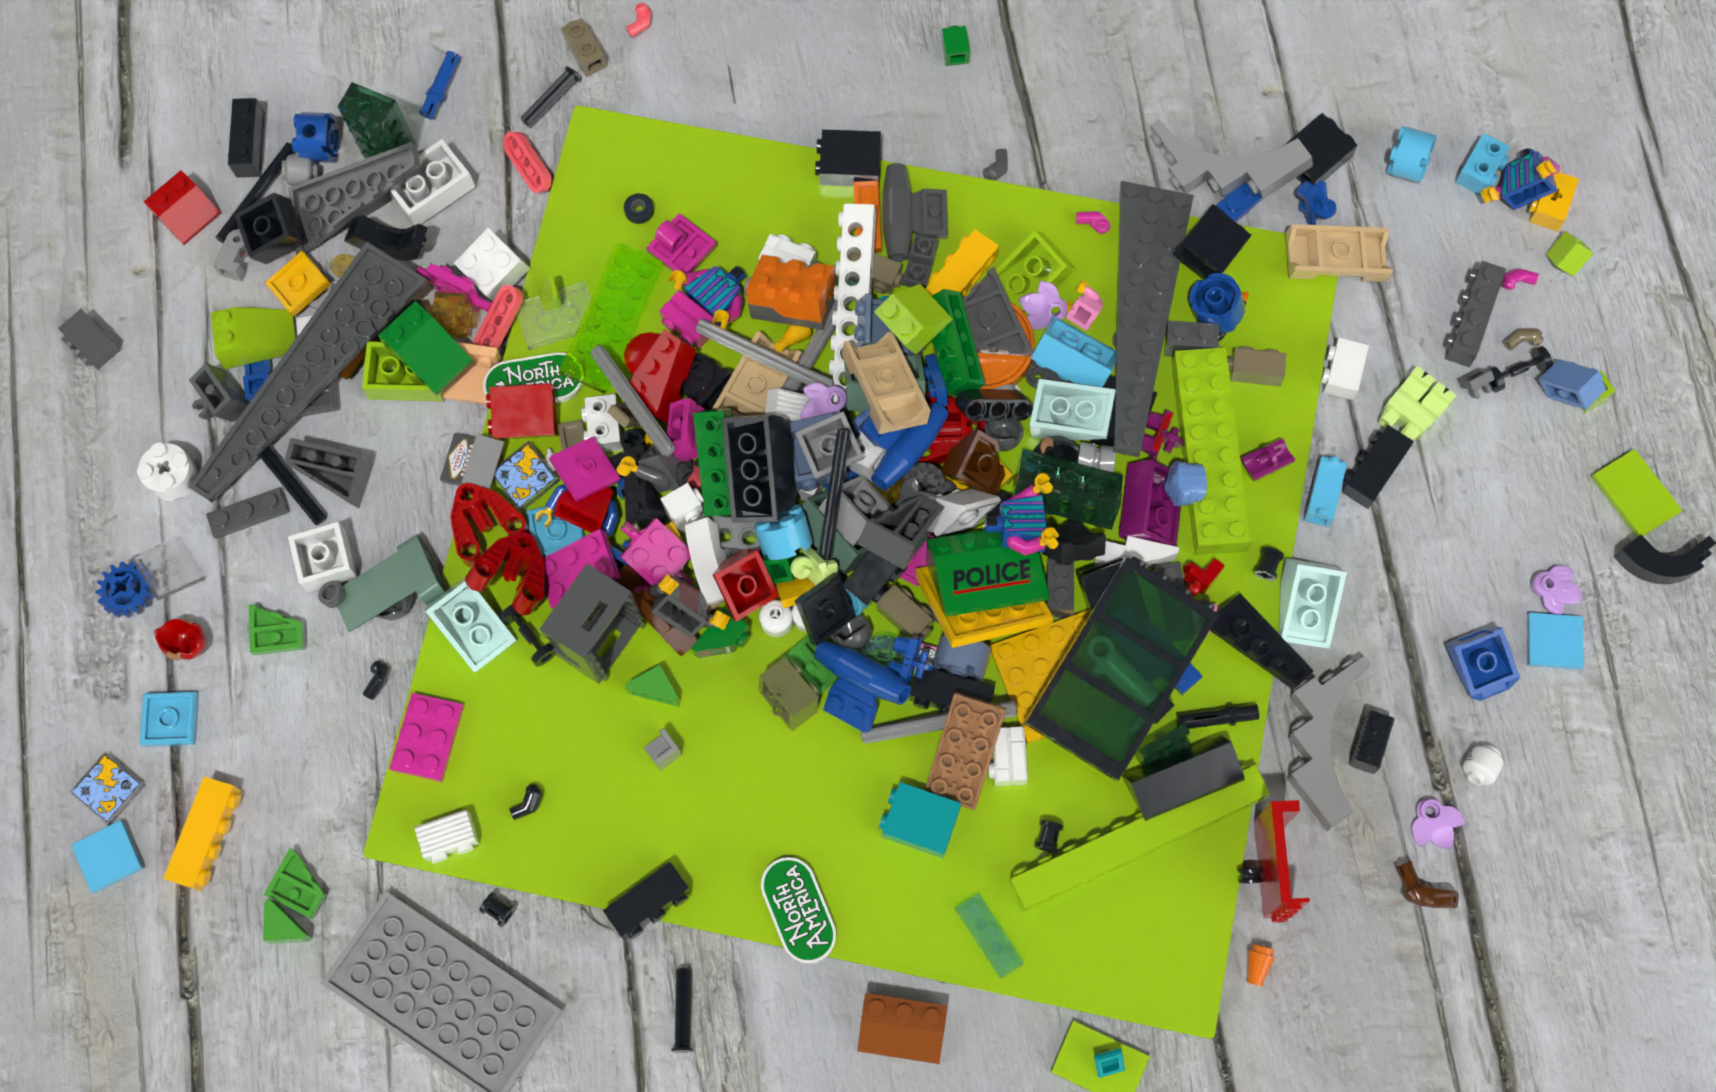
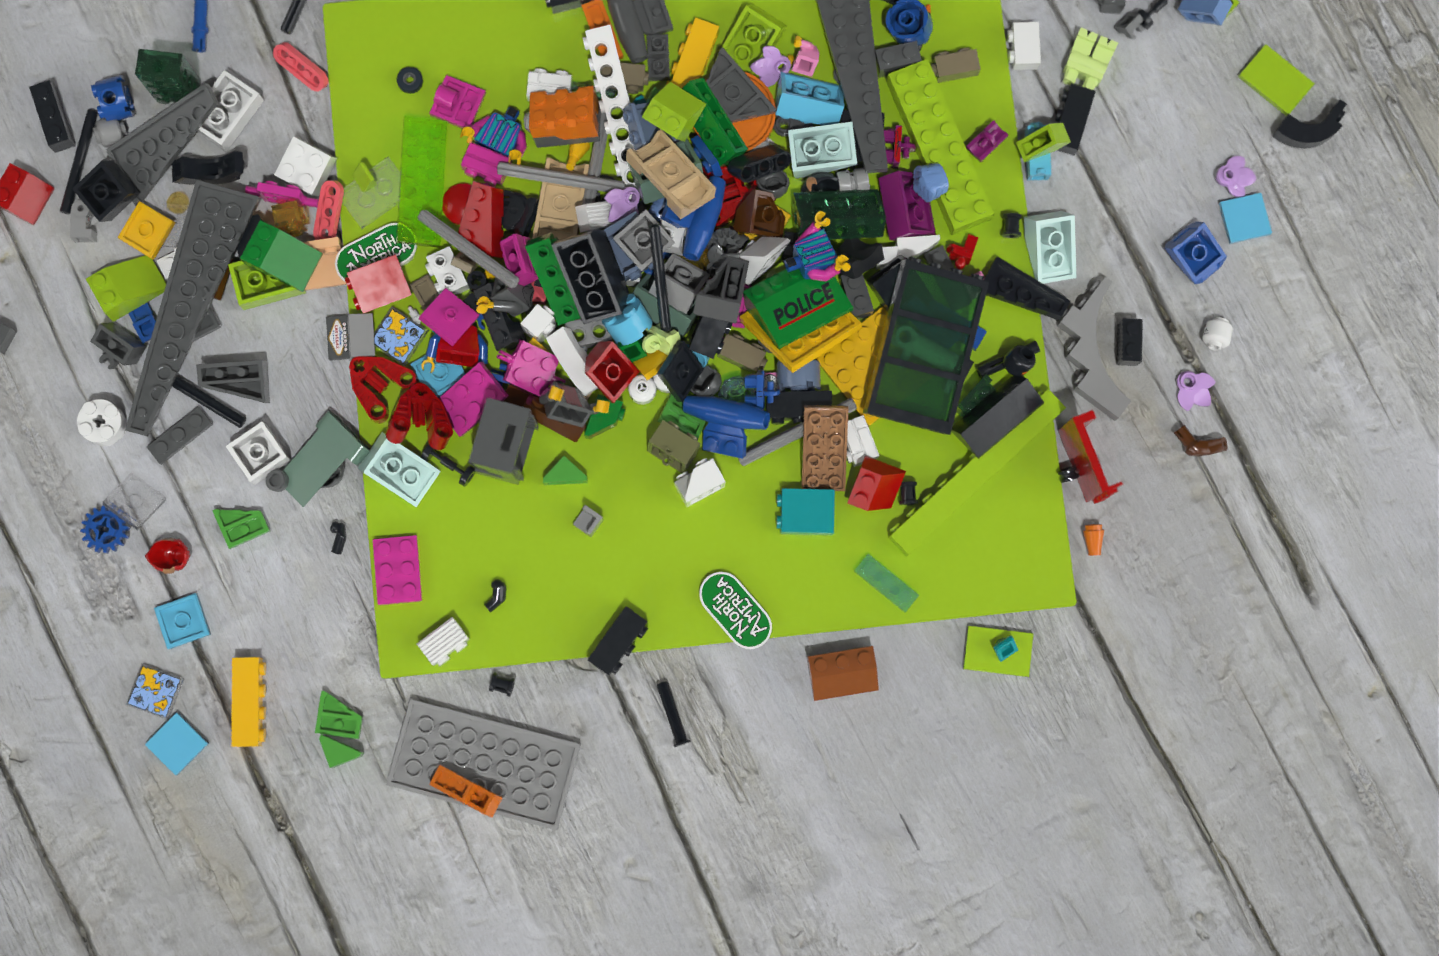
camera: 30 degrees left, 10 degrees up
(407, 1021) = (465, 791): none -> orange slope
(806, 745) = (700, 483): none -> white slope
(1012, 813) = (876, 485): none -> red slope
(1229, 719) = (1019, 360): none -> black head
(1334, 478) = (1043, 141): none -> lime slope

